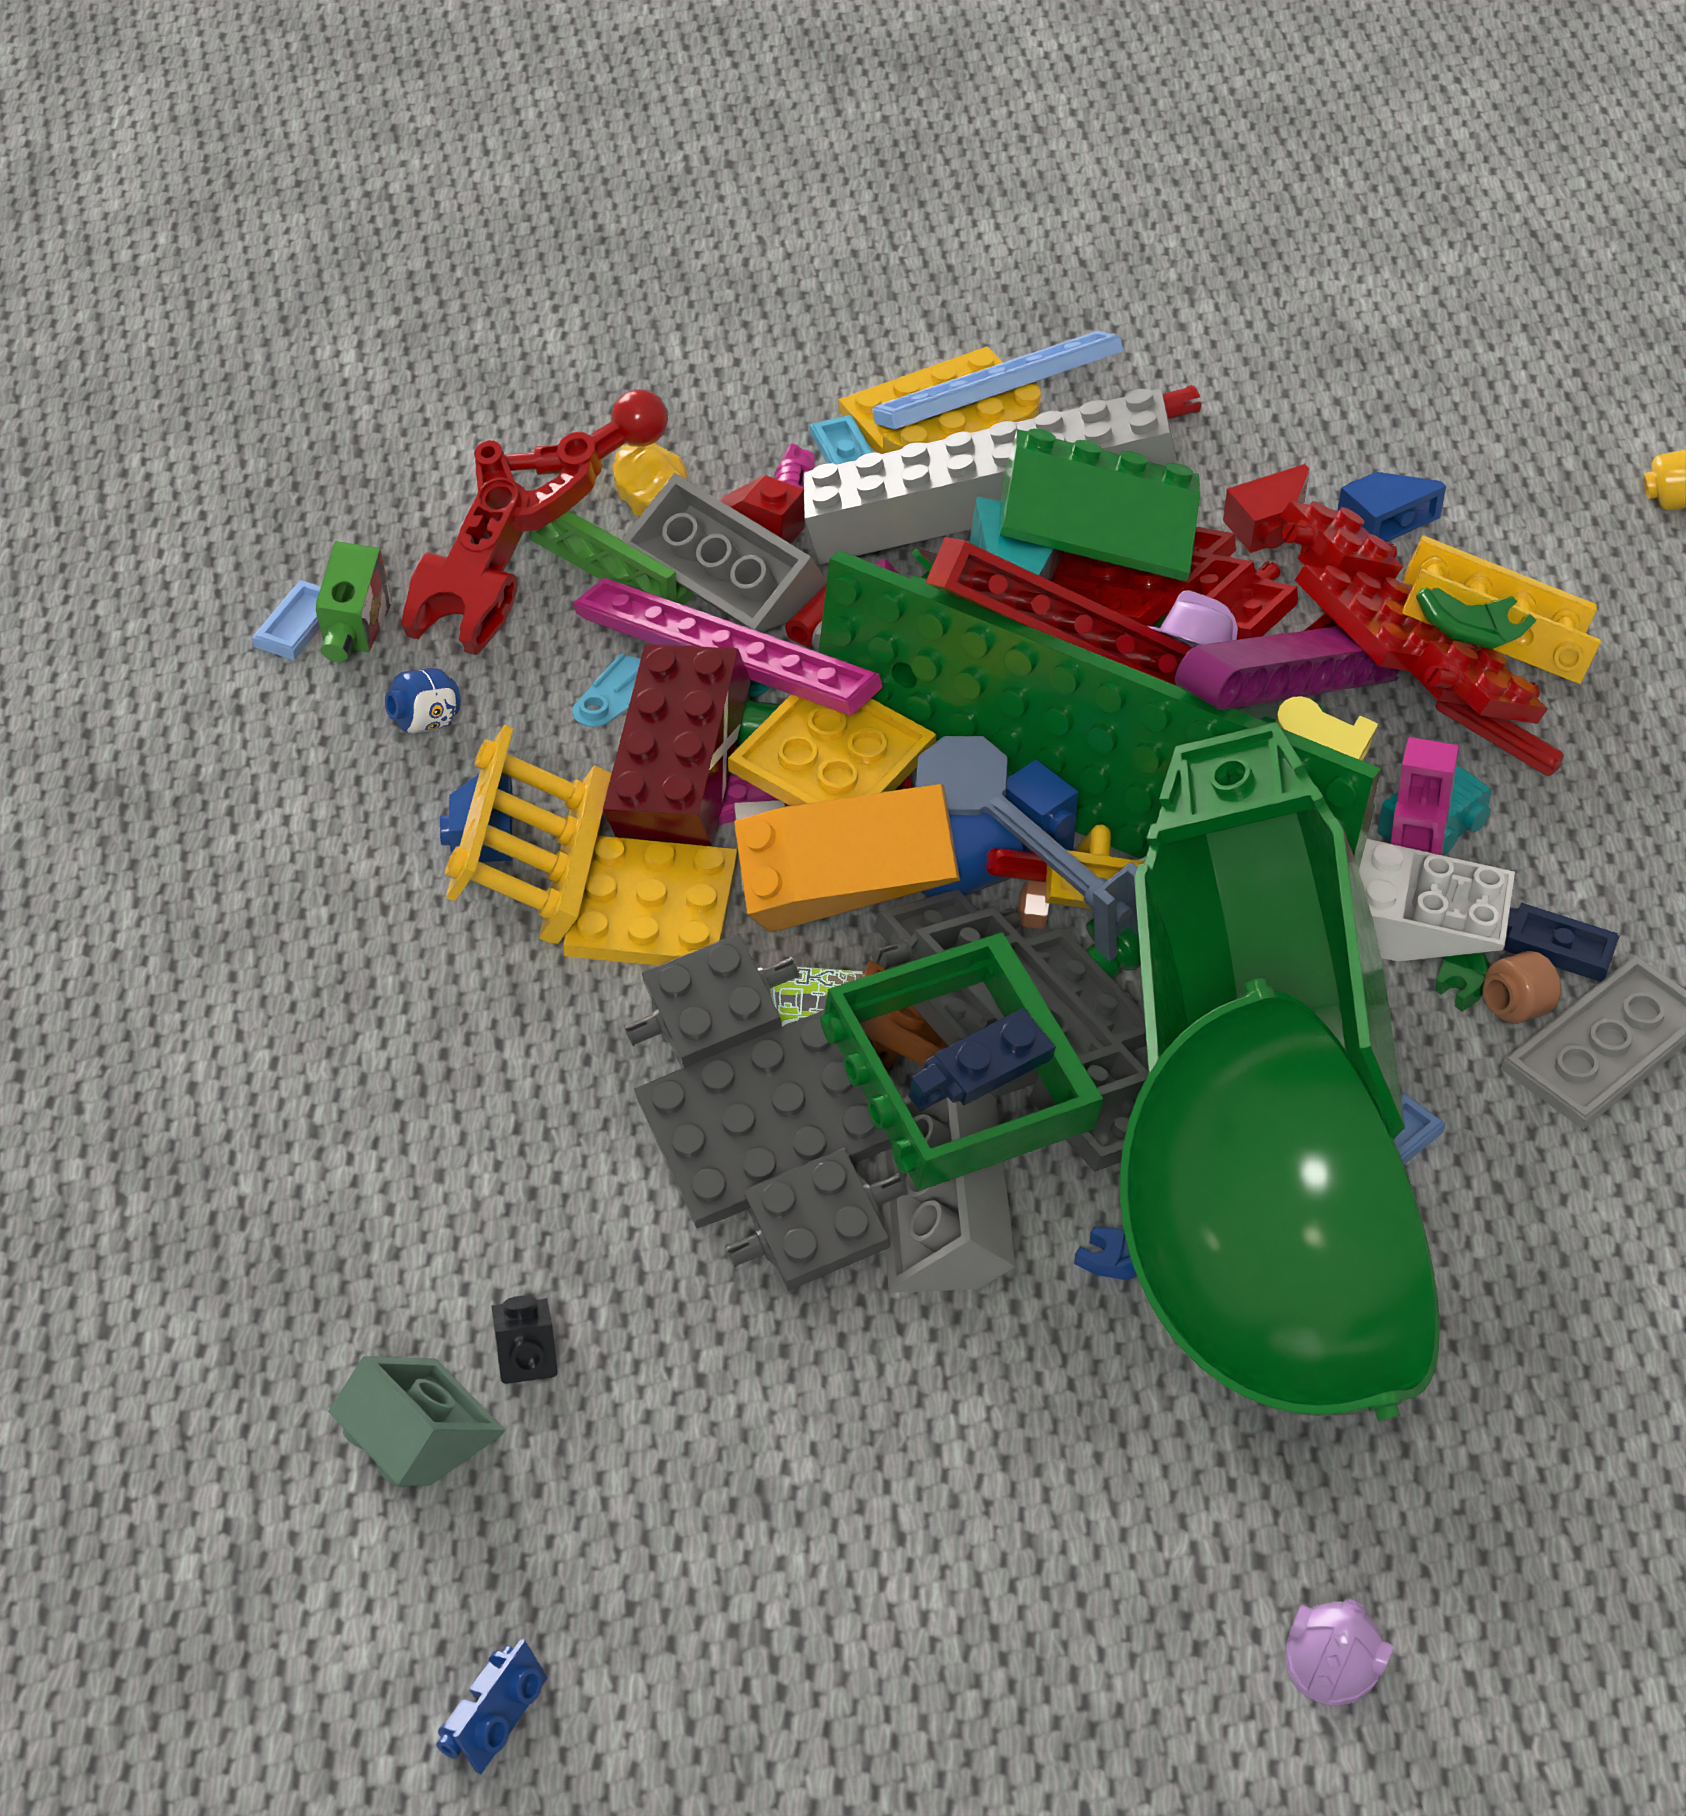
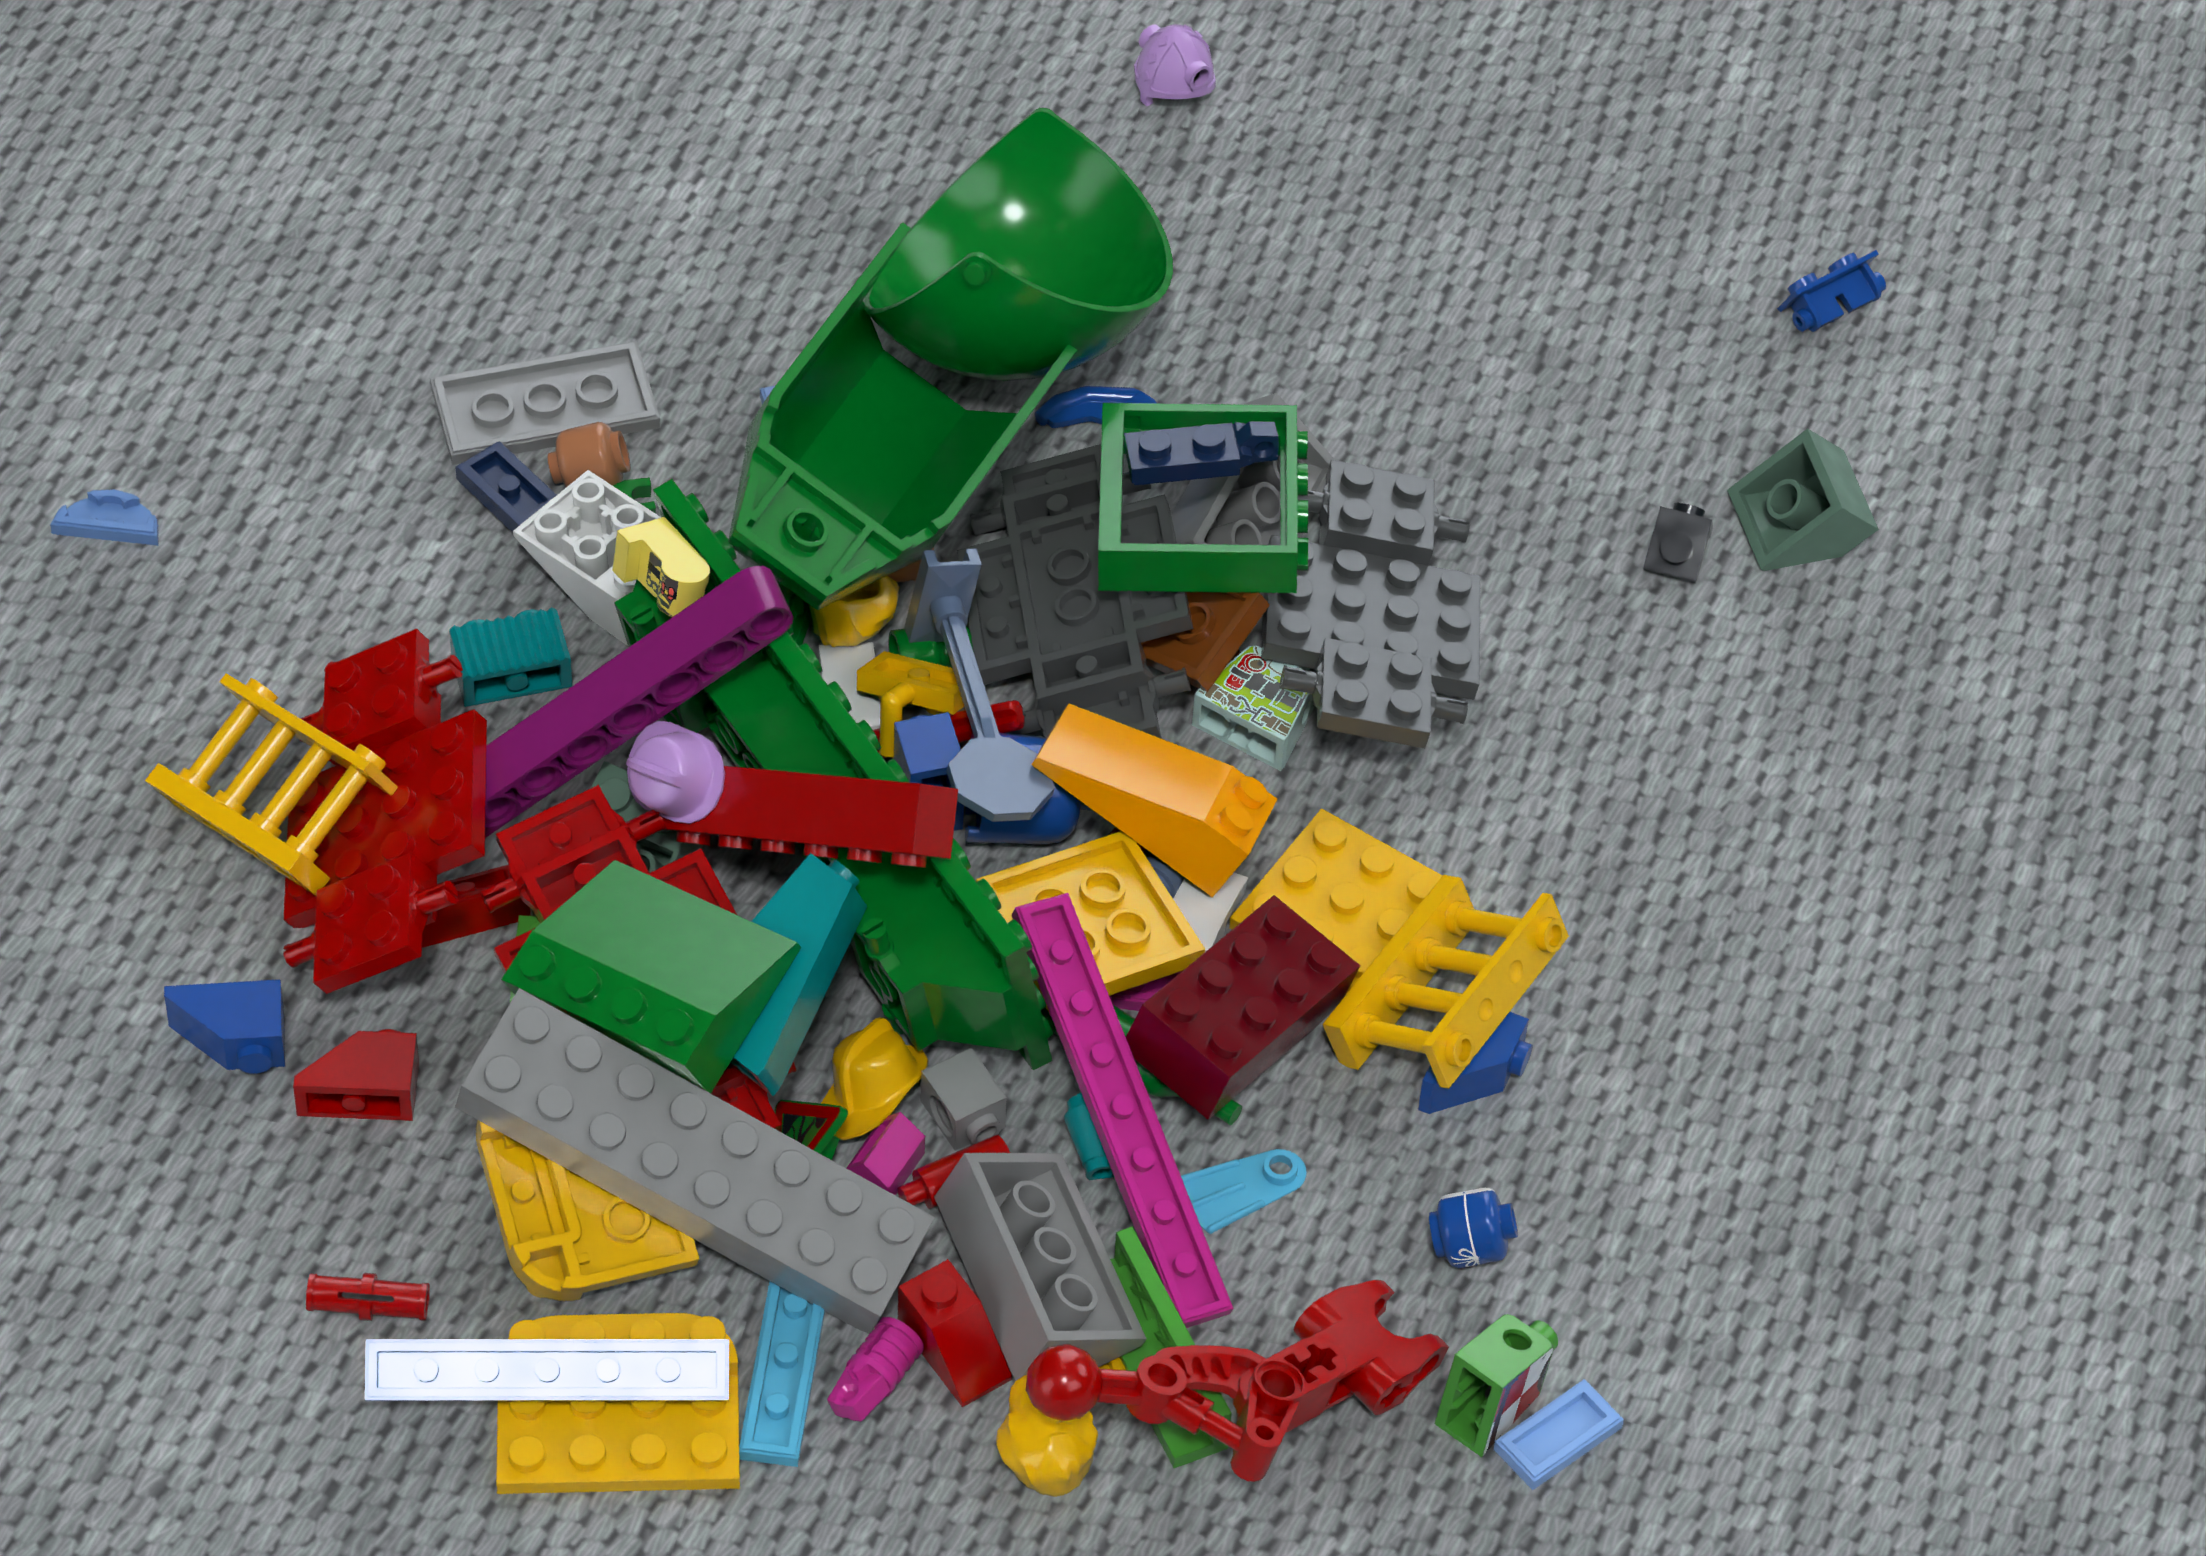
camera: 155 degrees left, 5 degrees up
(1424, 795) = (569, 578): dark pink slope -> none
(1472, 624) = (322, 711): green piece -> none

